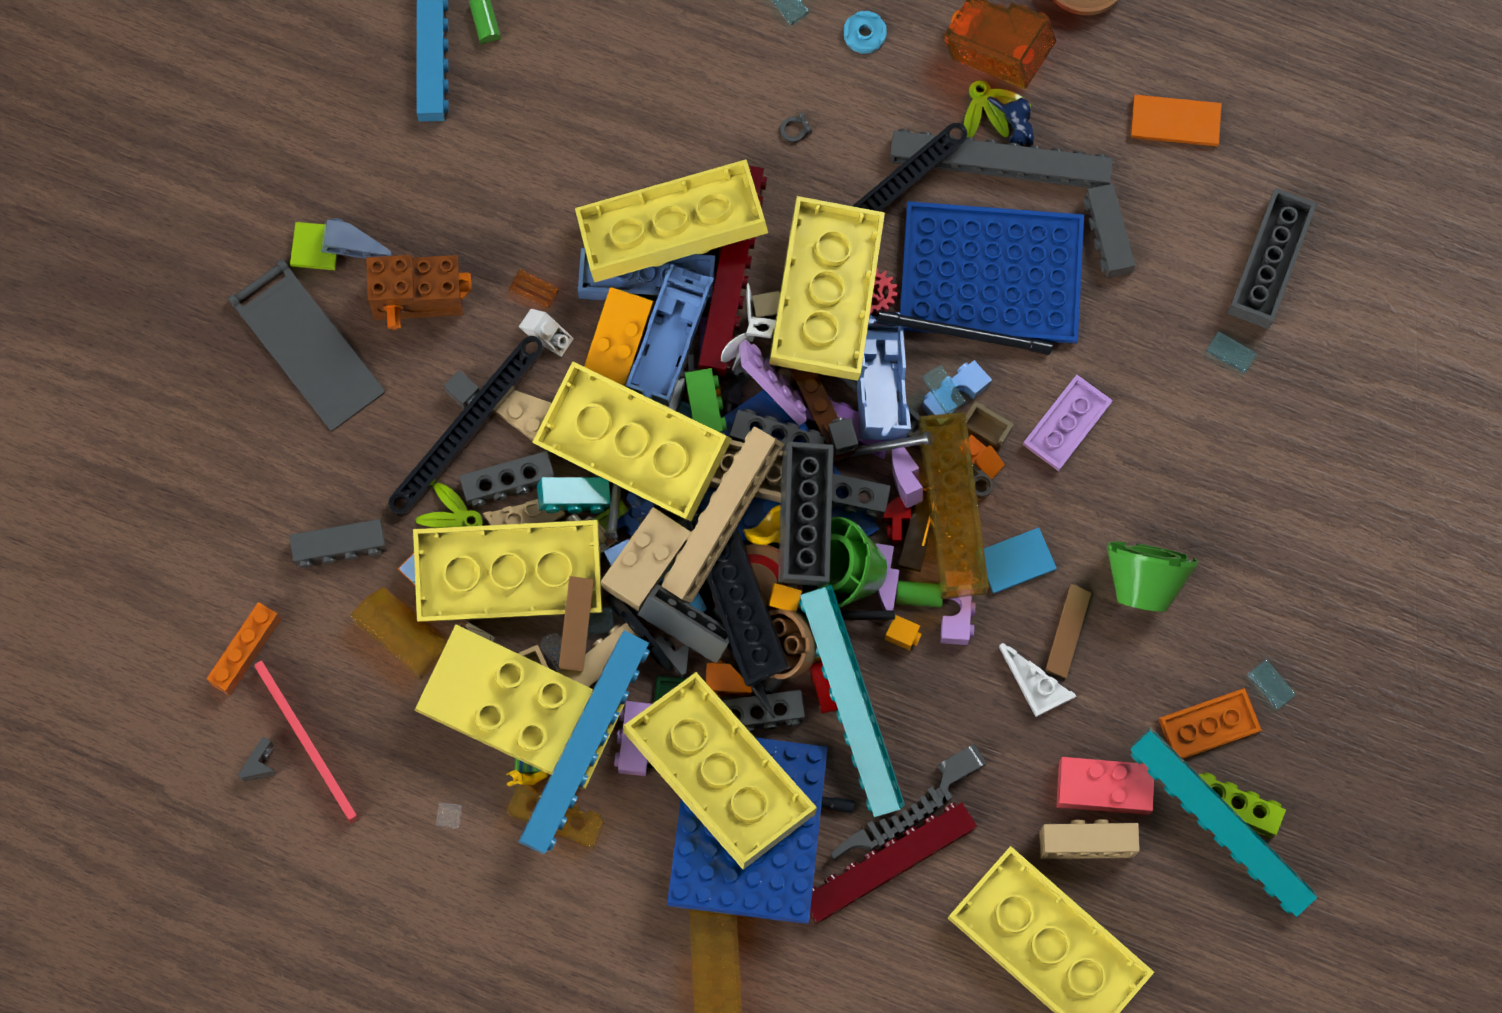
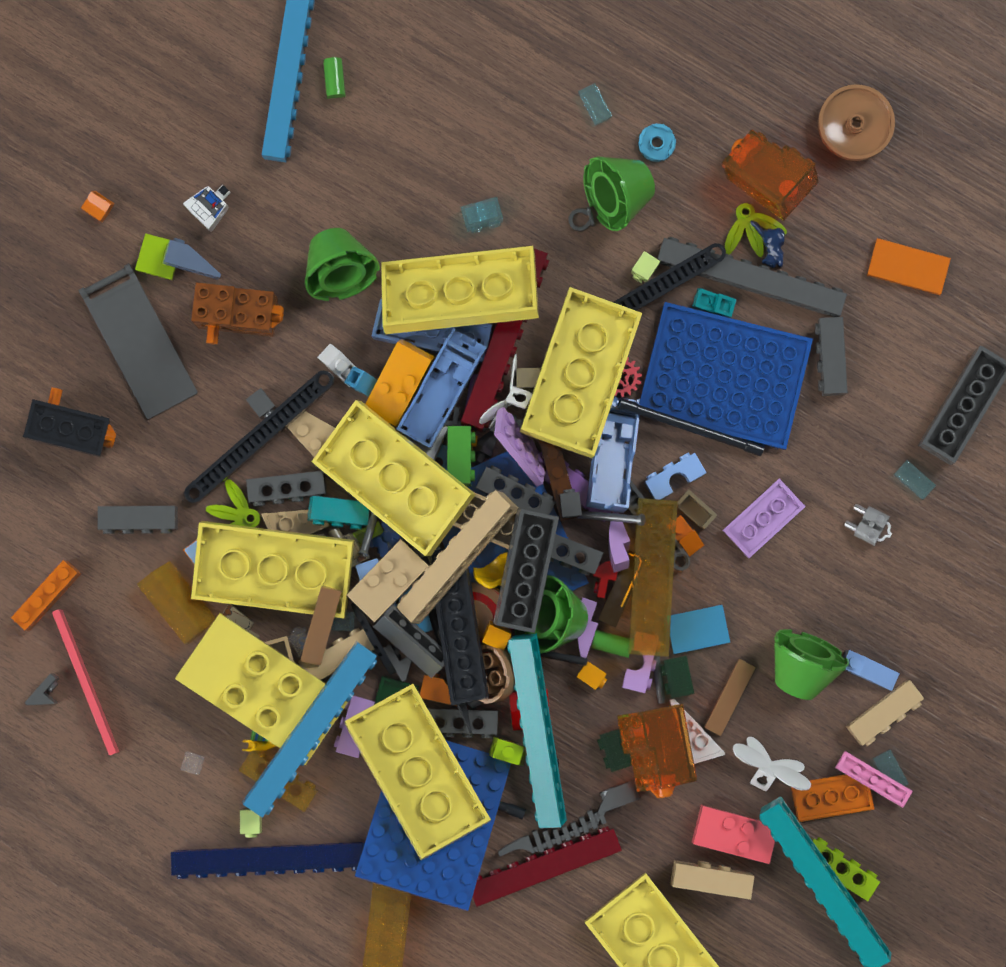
camera: 15 degrees right, 10 degrees up
(234, 202) = (97, 206): none -> orange piece
(241, 448) = (68, 427): none -> black piece
(363, 181) = (208, 206): none -> torso
(517, 280) = (349, 334): clear orange tile -> none
(528, 219) = (338, 265): none -> bright green cone
(530, 871) = (250, 823): none -> yellowish green brick
(556, 911) = (266, 858): none -> clear blue brick
(574, 344) = (361, 381): none -> dark azure brick
(680, 140) = (482, 215): none -> clear light blue brick
(821, 734) = (508, 751): none -> lime torso
(829, 84) = (617, 189): none -> bright green cone
(877, 167) = (645, 267): none -> yellowish green brick
(943, 389) = (663, 474): clear light blue tile -> none
(947, 713) = (613, 749): none -> clear green brick
(966, 195) = (714, 303): none -> teal slope
(982, 628) = (659, 682): none -> dark grey bar
(996, 696) = (658, 748): none -> clear orange piece
(1003, 617) = (677, 676): none -> clear green brick
(1150, 702) = (784, 769): none -> white piece
(1192, 409) = (871, 525): none -> light grey piece
(1224, 572) = (870, 670): none -> light blue slope
(1251, 617) = (885, 712): none -> tan brick
(1254, 695) = (873, 779): none -> bright pink tile

